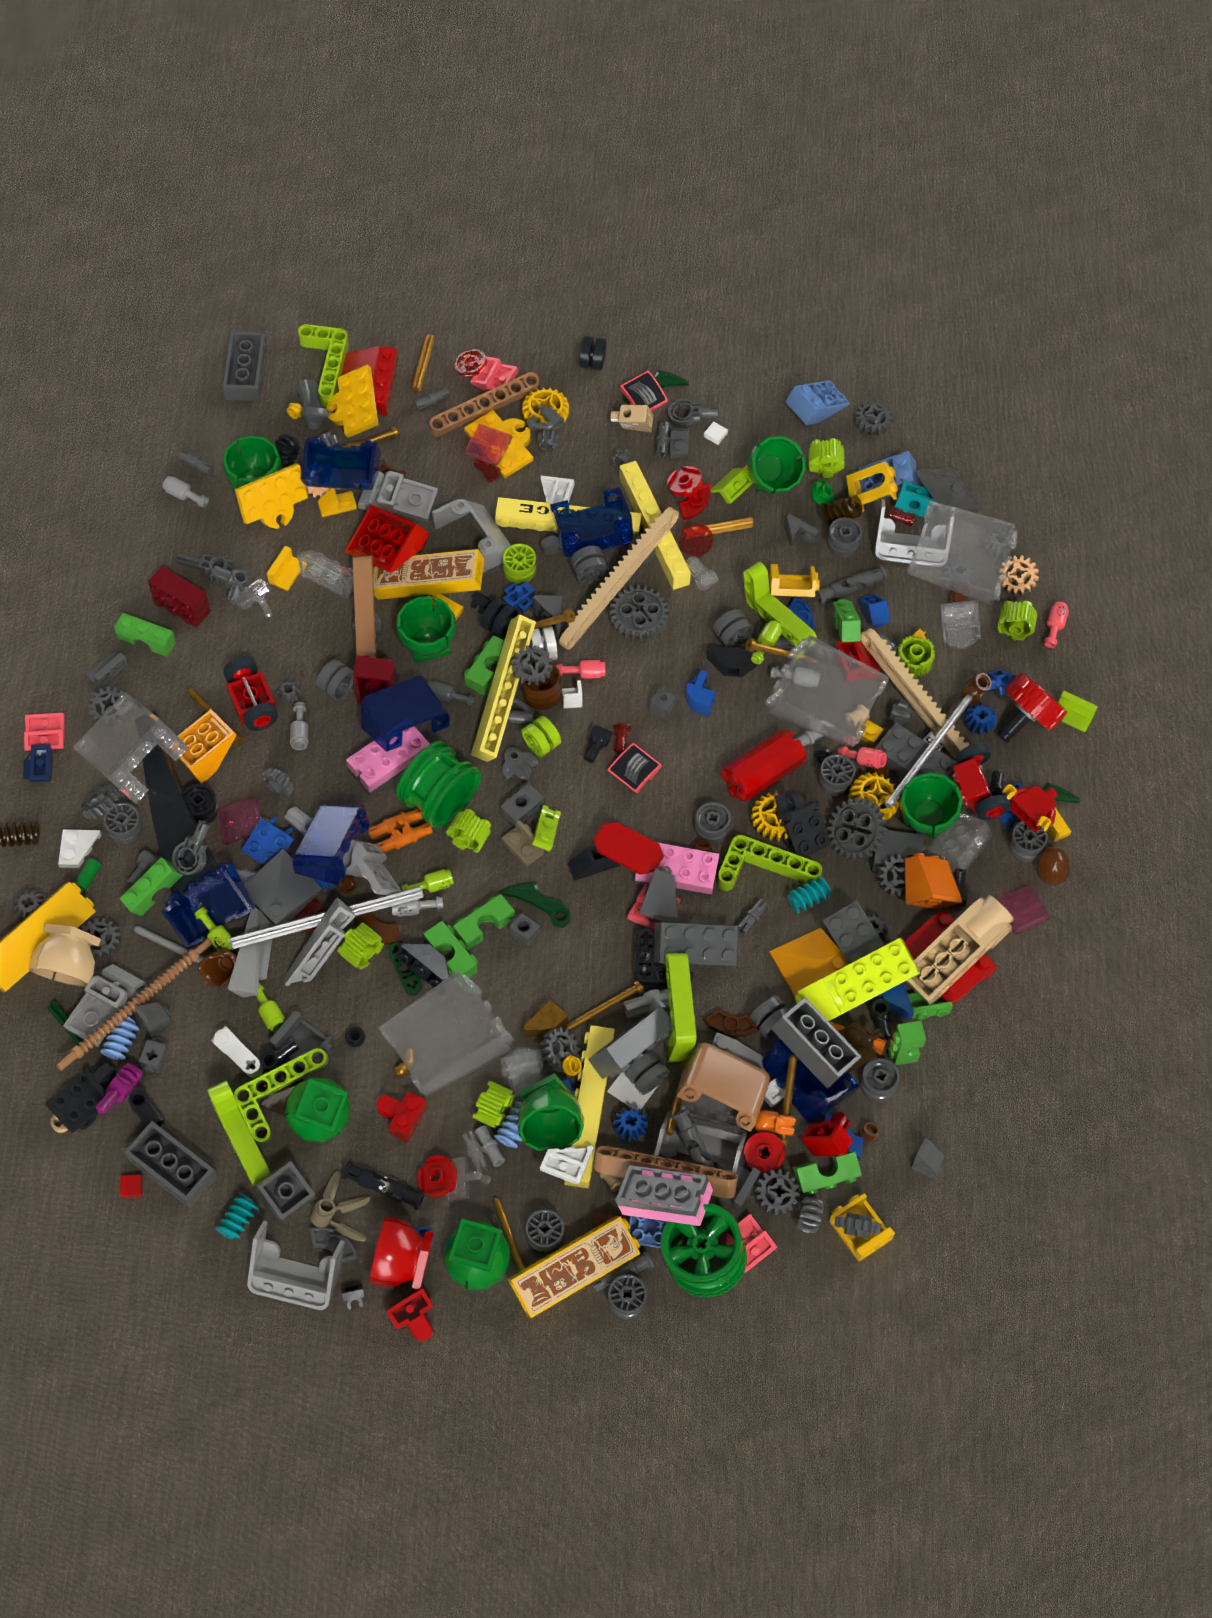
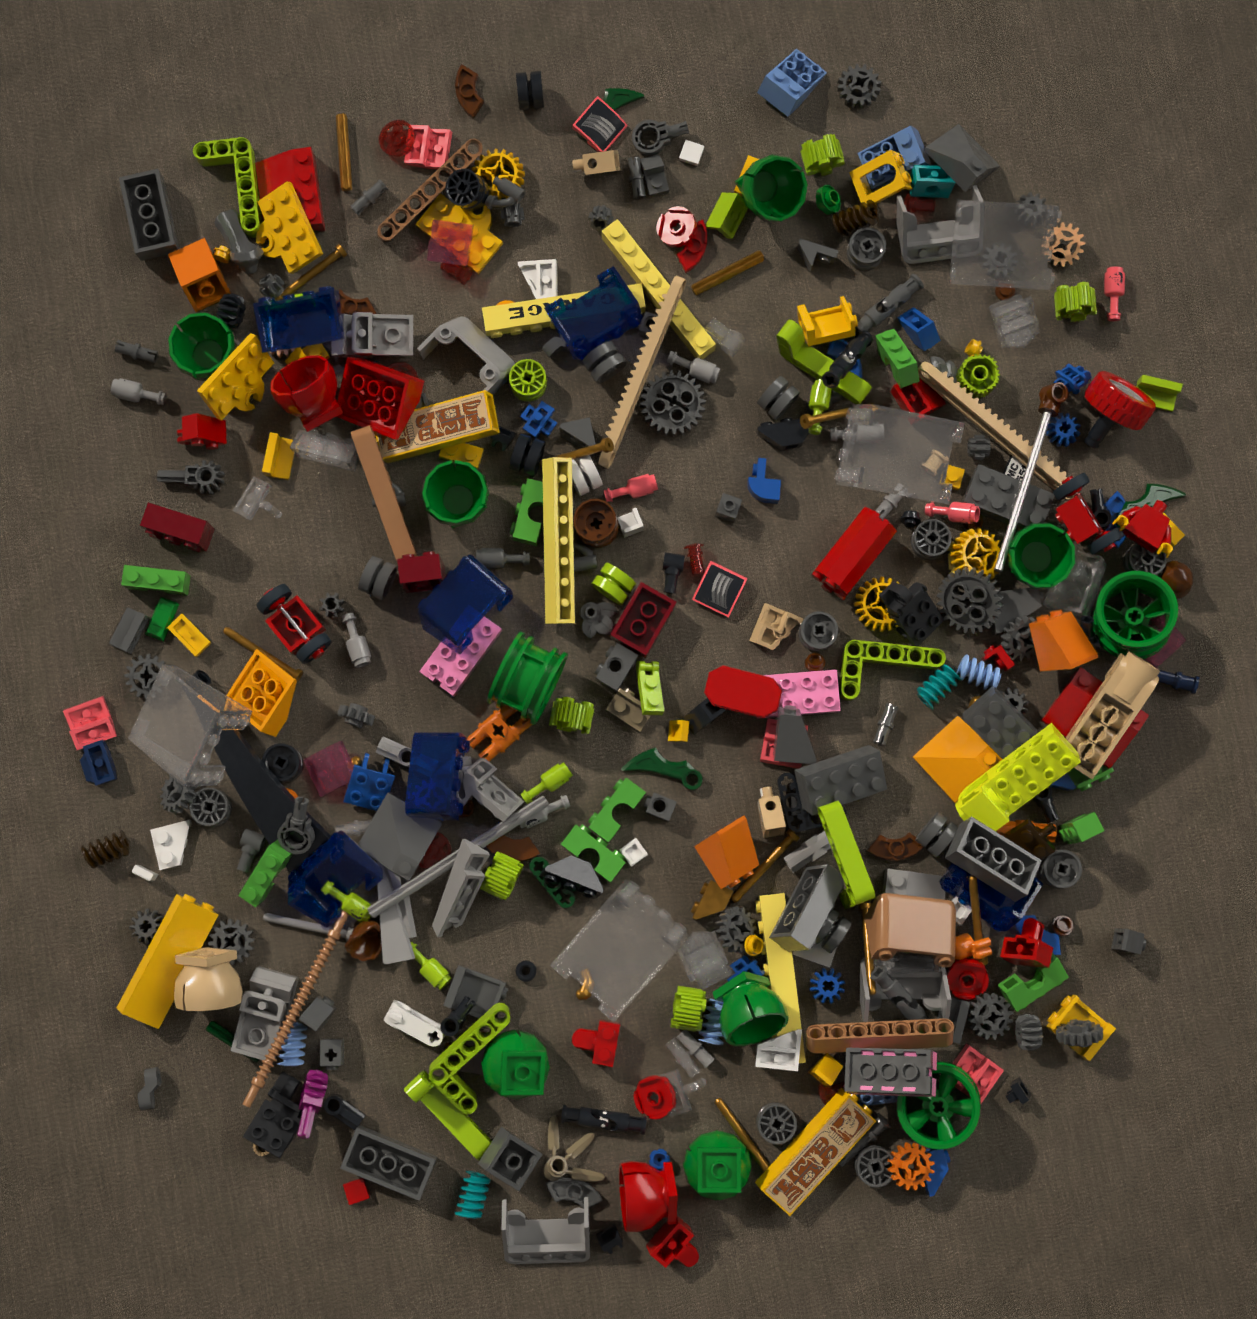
camera: 15 degrees left, 20 degrees up
(44, 862) = (144, 873): none -> white tile
(87, 874) = (193, 874): green cylinder -> none
(138, 668) = (162, 618): none -> green tile
(157, 685) = (189, 635): none -> yellow plate
(227, 529) = (202, 431): none -> red brick
(232, 578) = (233, 497): dark grey axle -> none
(269, 416) = (199, 274): none -> orange slope
(328, 520) = (311, 392): none -> red plate
(487, 963) = (633, 852): none -> white tile
(515, 407) = (467, 189): none -> black wheel
(525, 669) = (592, 507): dark grey gear -> none
(540, 345) = (466, 91): none -> reddish brown tile
(558, 771) = (643, 620): none -> dark red brick
(561, 871) = (678, 731): none -> yellow plate
(574, 978) = (729, 853): none -> orange slope
(604, 1195) = (826, 1070): none -> yellow slope
(622, 957) = (771, 820): none -> tan torso
(653, 1296) = (912, 1157): none -> orange gear
(671, 592) = (698, 368): none -> light grey piece
(673, 810) = (773, 626): none -> tan slope
(683, 1315) = (940, 1169): none -> blue slope
(696, 539) = (708, 296): clear red wheel -> none
(785, 1269) = (1018, 1091): none -> black tile
(801, 609) = (847, 359): none -> black piece
(848, 893) = (978, 672): none -> light blue piece
(873, 887) = (1001, 659): none -> red bracket
(1008, 852) = (1129, 585): none -> green wheel
(1032, 949) = (1179, 681): none -> dark blue pin

